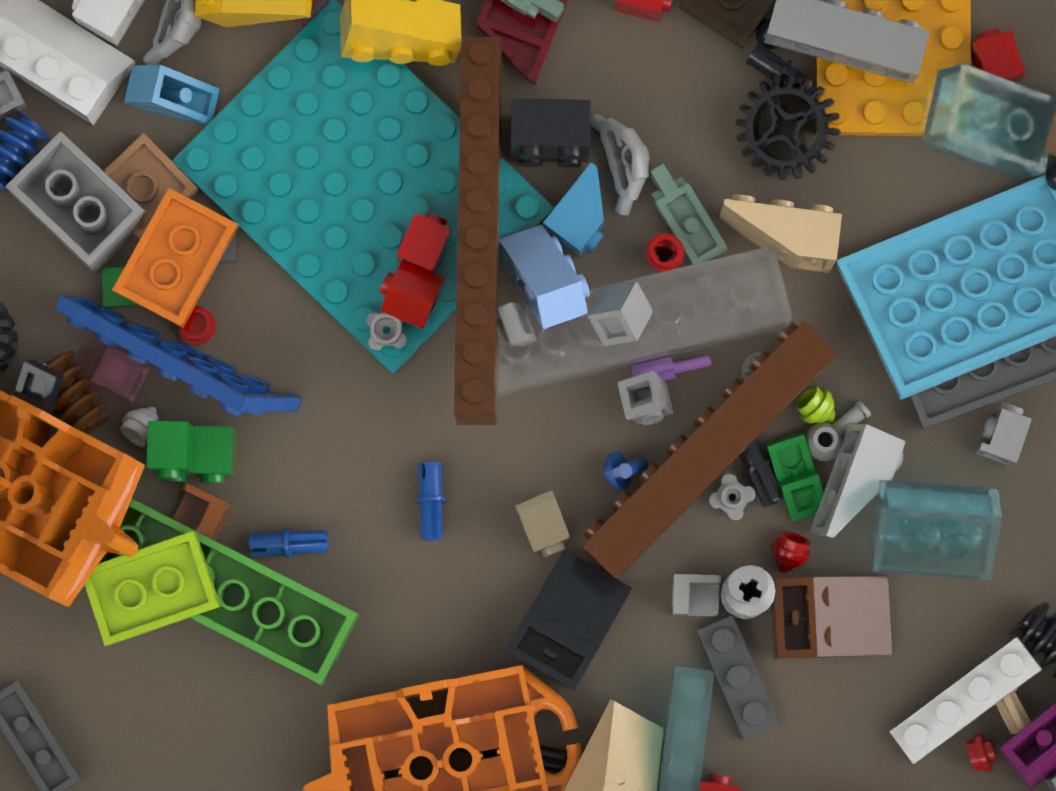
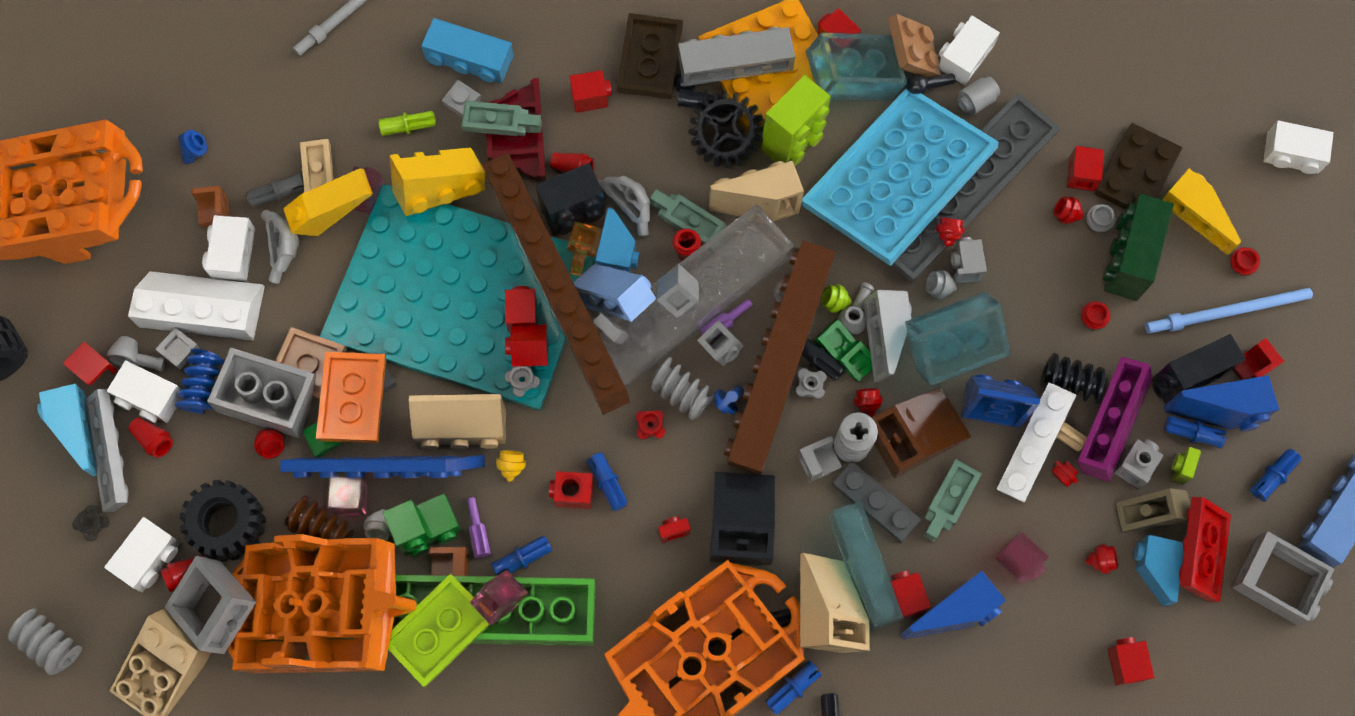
camera: 30 degrees left, 10 degrees down
(38, 385) = (291, 522): black plate -> none
(57, 264) = (269, 443): none -> red plate
(171, 94) = (298, 293): dark azure slope -> none
(198, 328) = (389, 440): red plate -> none
(235, 586) = (498, 597): none -> clear pink brick
(252, 487) = (477, 532): none -> medium lavender axle
(287, 346) = (458, 420): none -> tan slope
(327, 424) = (510, 464): none -> yellow plate
(396, 504) = (582, 499): none -> red brick
(480, 594) = (673, 529): none -> red plate
(512, 444) = (654, 417): none -> red plate
(540, 194) = (584, 242): none -> clear orange plate
(543, 524) = (692, 458): dark tan slope -> none
(570, 430) = (681, 389): none -> light grey piece
(577, 81) = (568, 161): none -> red cone
(828, 716) = (950, 498): none -> sand green hinge
(874, 164) = (795, 122): none -> lime brick
(945, 627) = (998, 401): none -> blue slope
(954, 449) = (940, 284): none -> light grey plate
(999, 388) = (950, 230): none -> red plate

